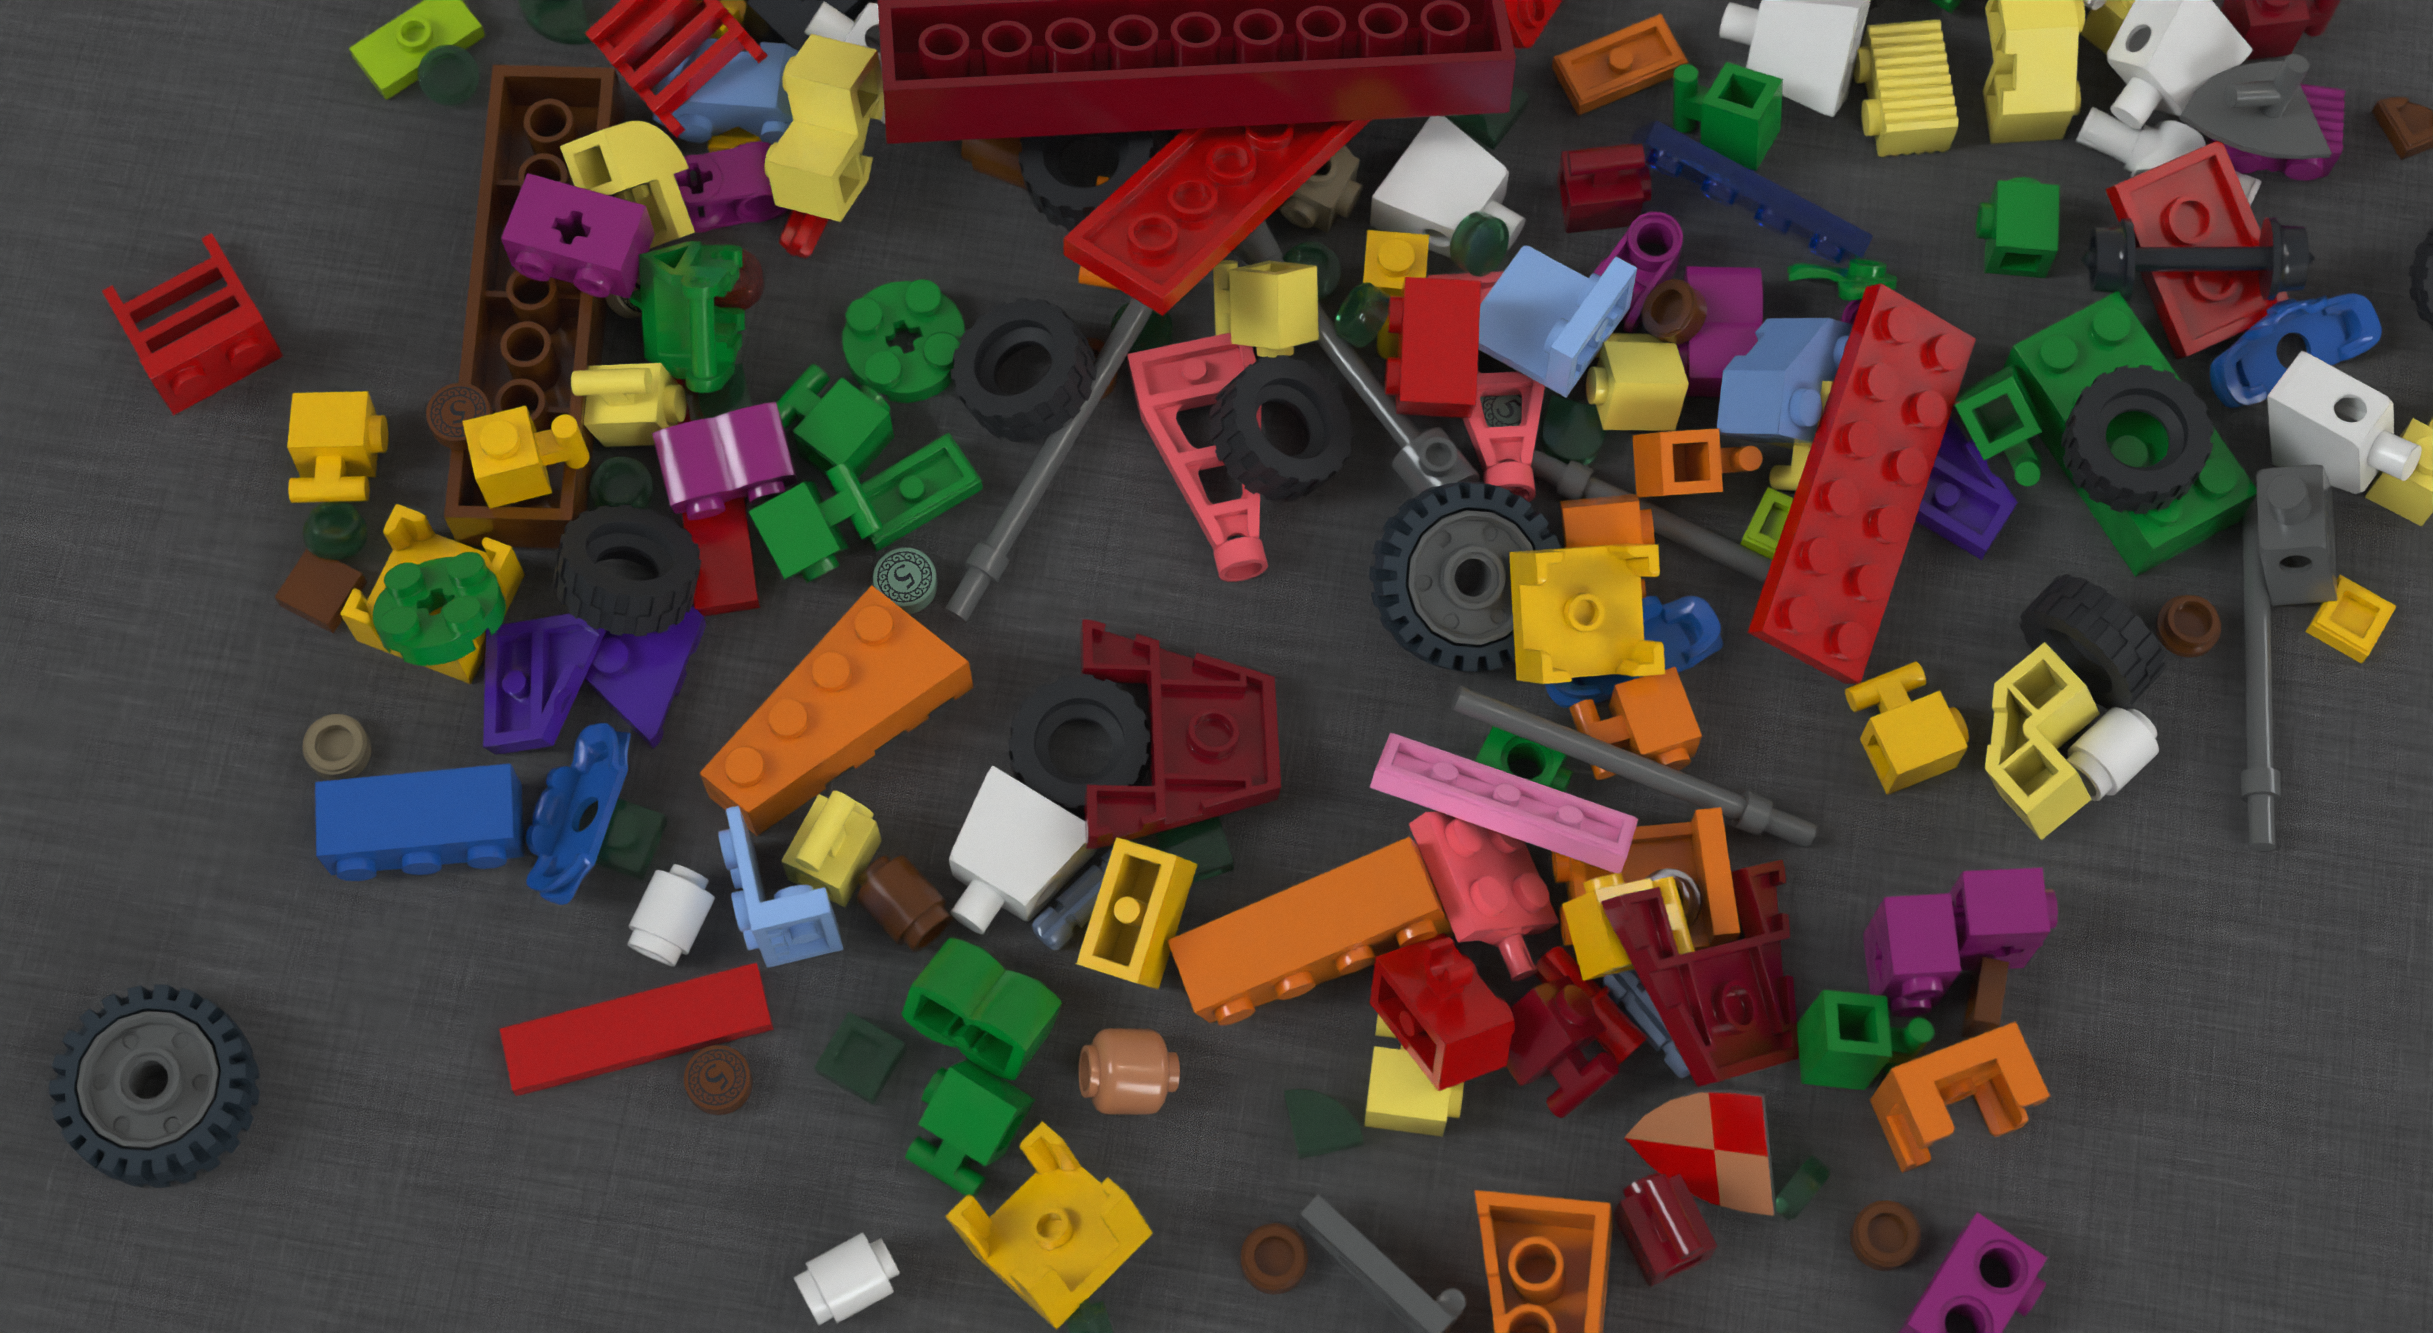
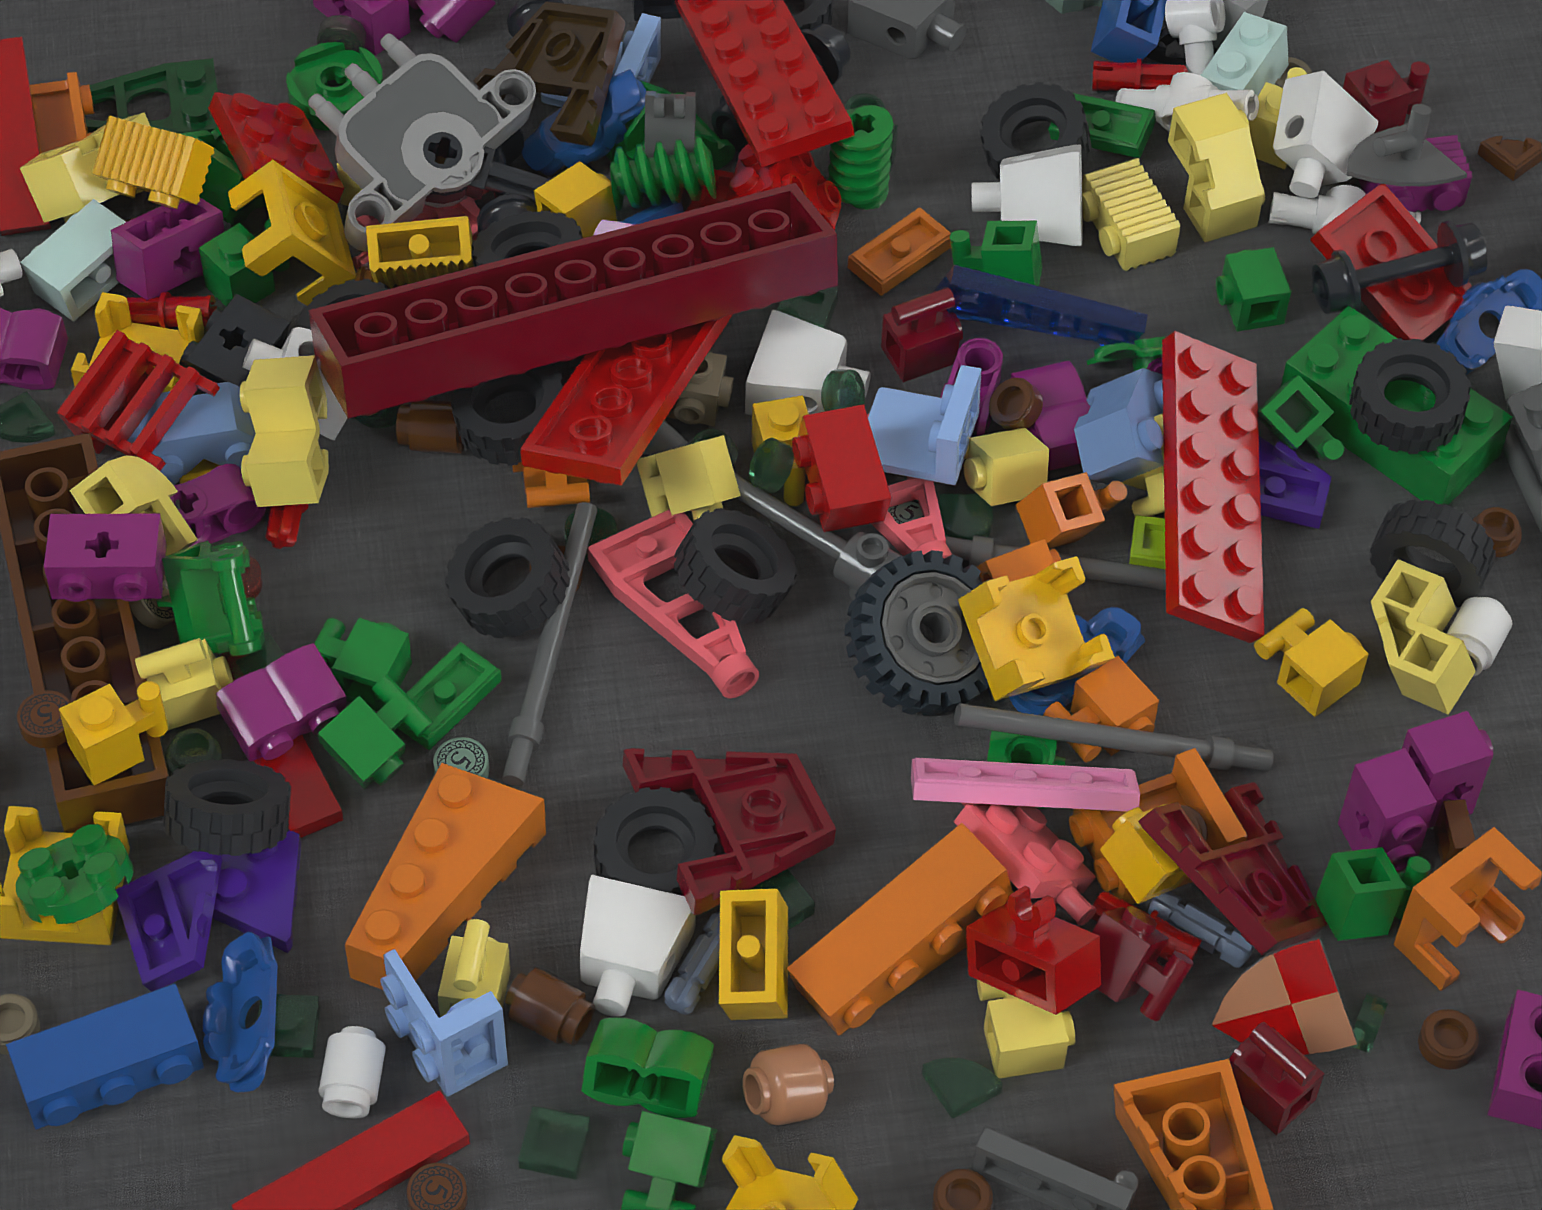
camera: 20 degrees left, 15 degrees down
(896, 308) = (397, 561): green plate -> none

